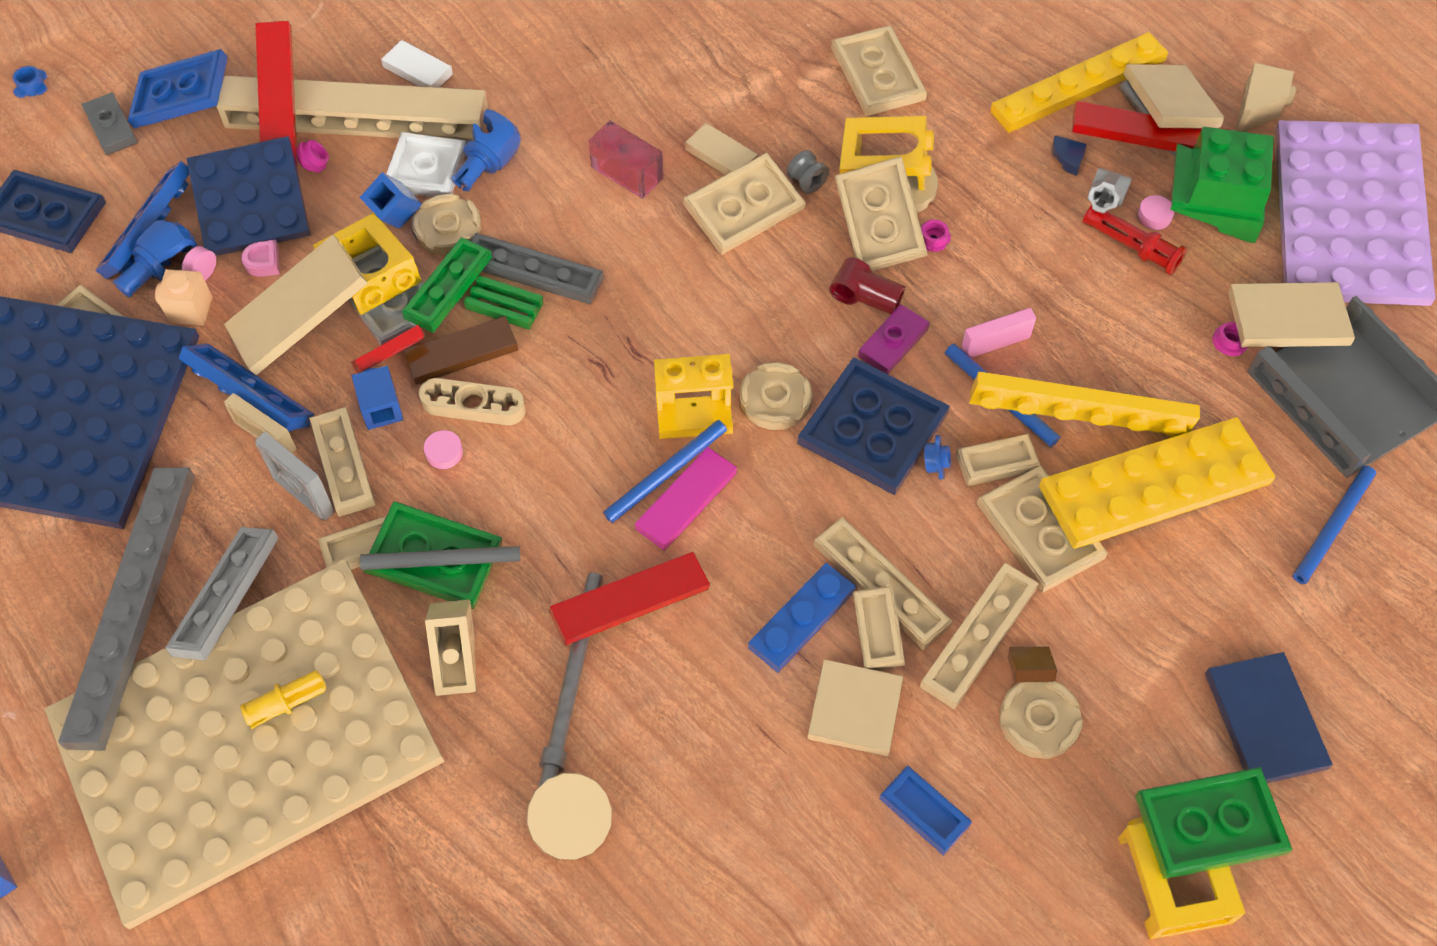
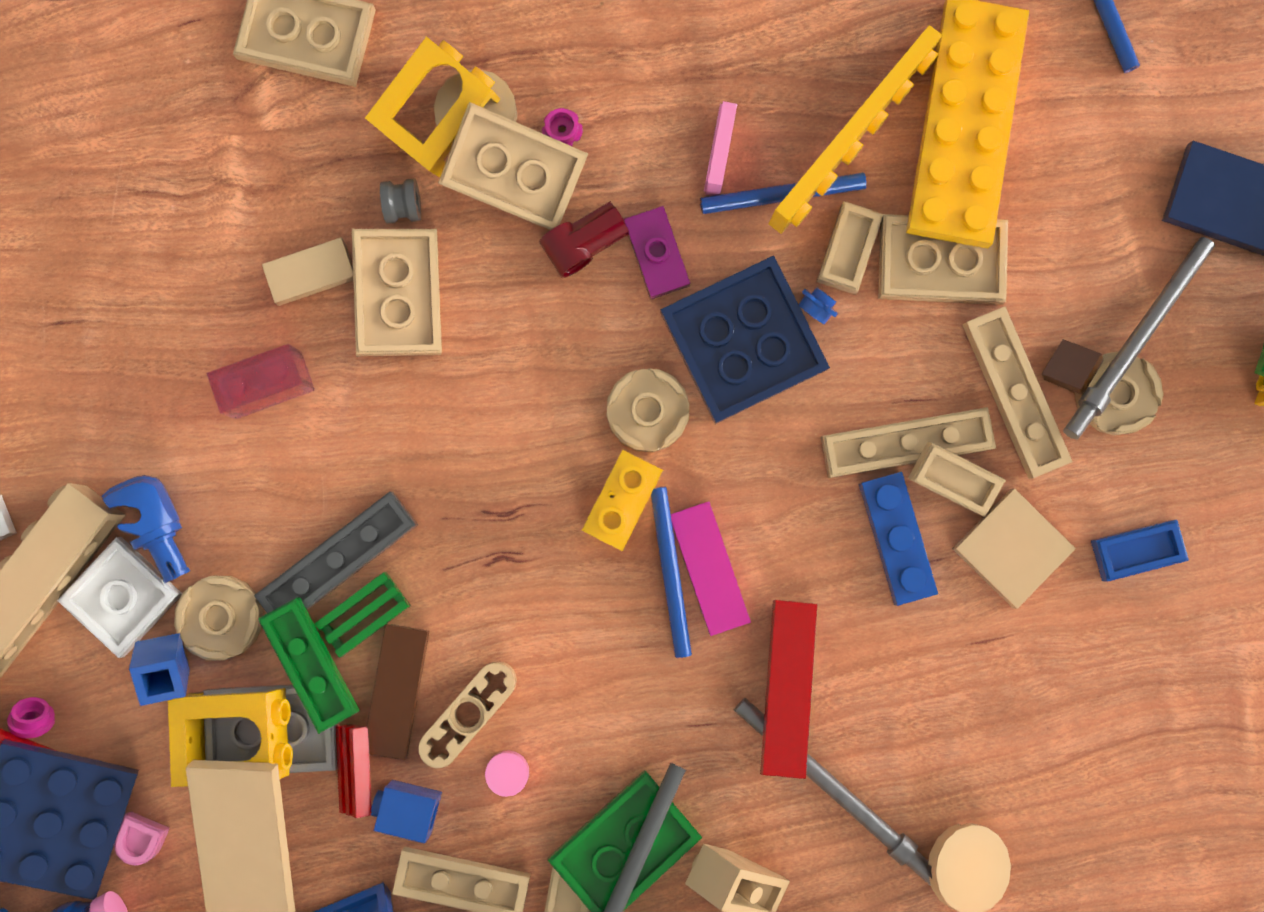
camera: 60 degrees left, 25 degrees up
(1018, 689) = (1097, 398): none -> flat silver bar

